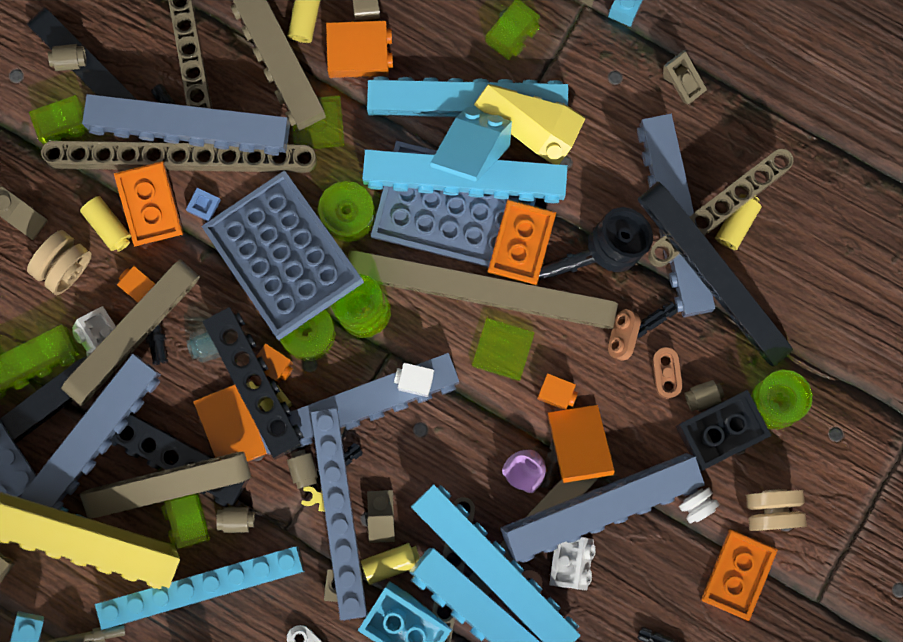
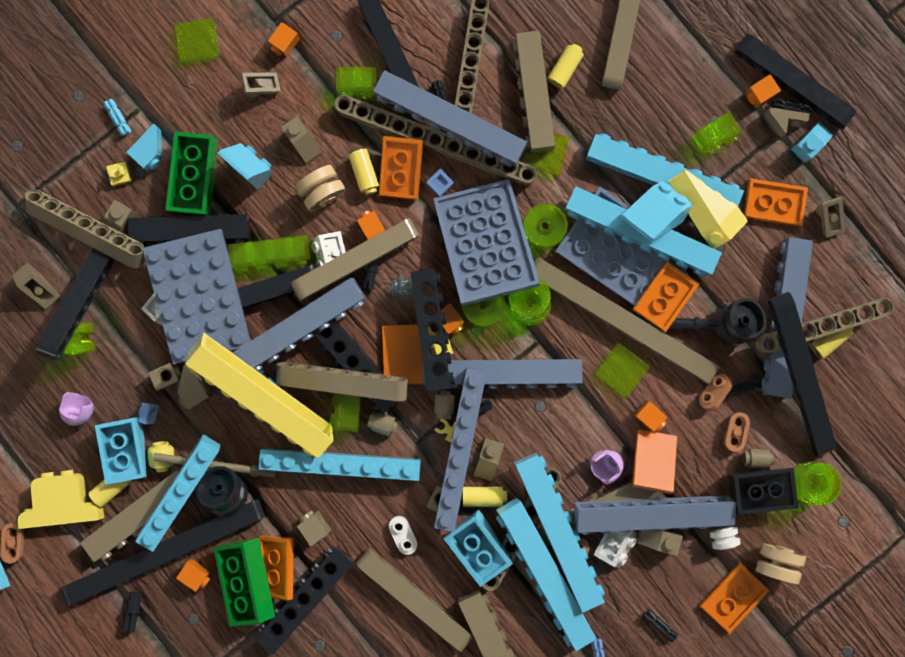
camera: 25 degrees right, 5 degrees up
(67, 57) = (379, 36): dark tan brick -> none
(358, 49) = (596, 107): orange brick -> none
(414, 379) = (550, 371): white brick -> none
(612, 85) = (775, 202): none -> orange tile
(622, 537) = (660, 540): none -> dark tan slope

